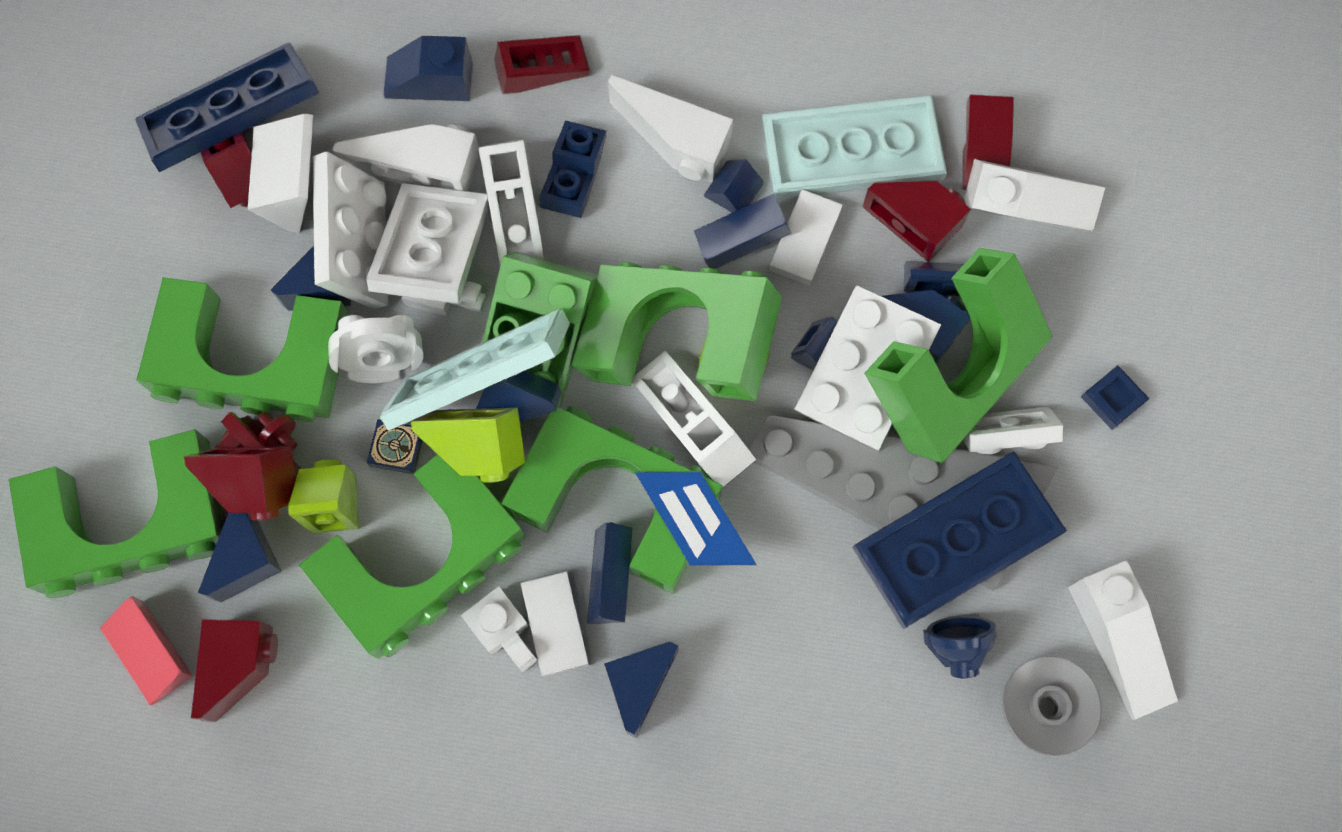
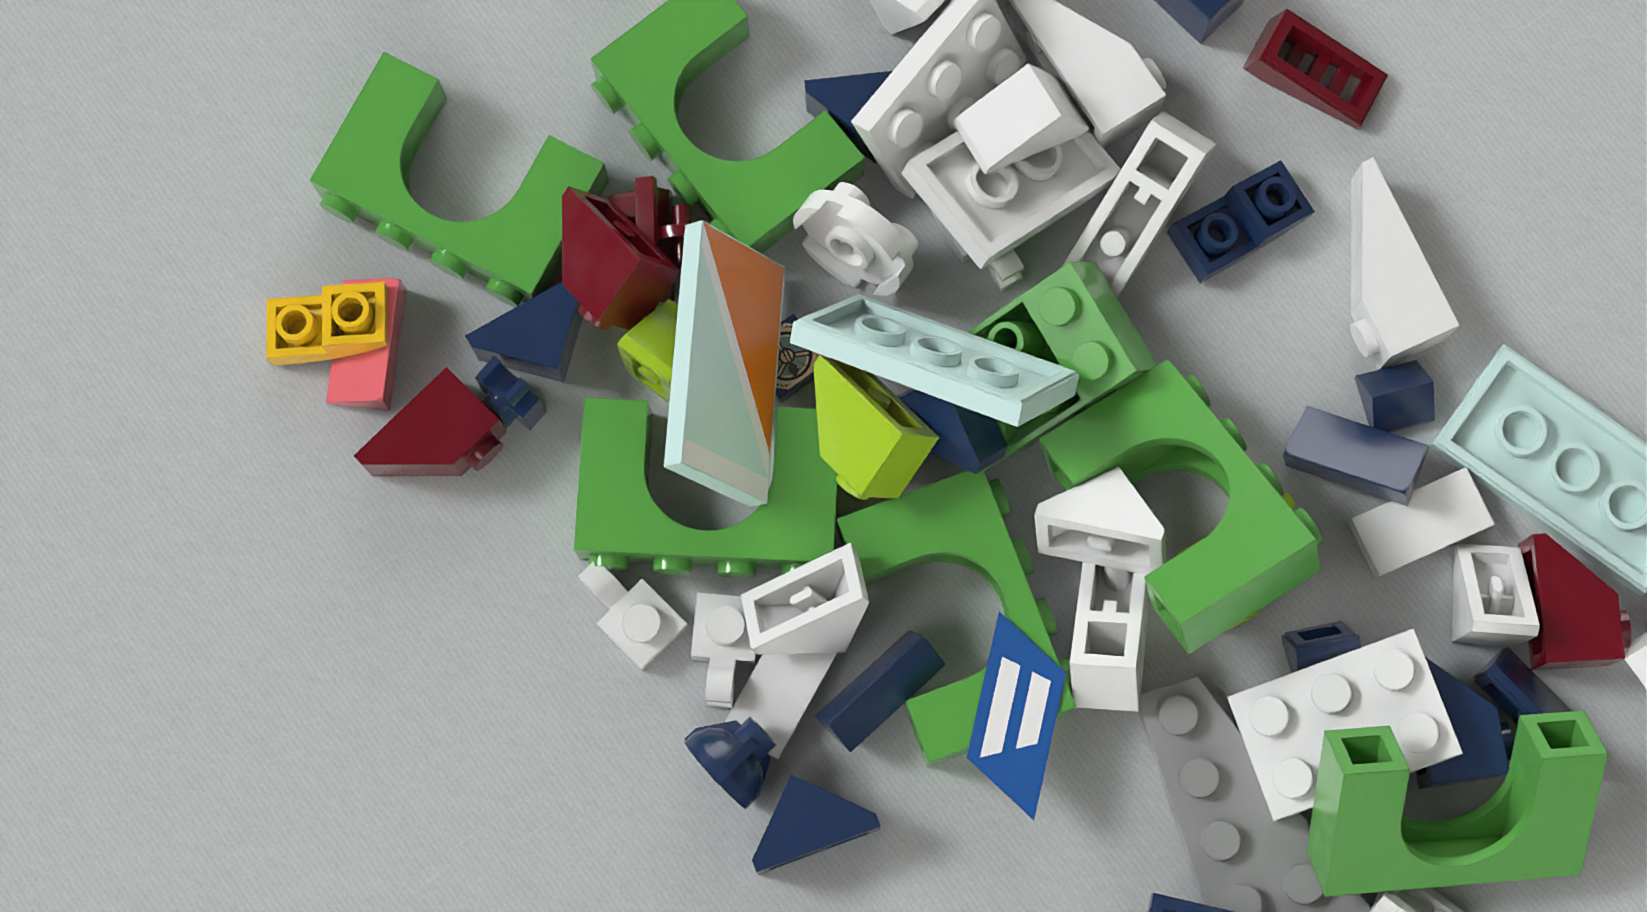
camera: 45 degrees right, 5 degrees up
(114, 658) = (327, 326): none -> yellow slope
(253, 602) = (508, 396): none -> dark blue plate
(362, 475) = (725, 365): none -> tile
(407, 210) = (1019, 119): none -> white slope
(441, 661) = (636, 619): none -> white plate
(530, 563) = (808, 607): none -> white slope
(563, 683) = (734, 756): none -> dark blue piece
(647, 378) = (1102, 526): none -> white slope
(877, 242) = (1492, 597): none -> white slope

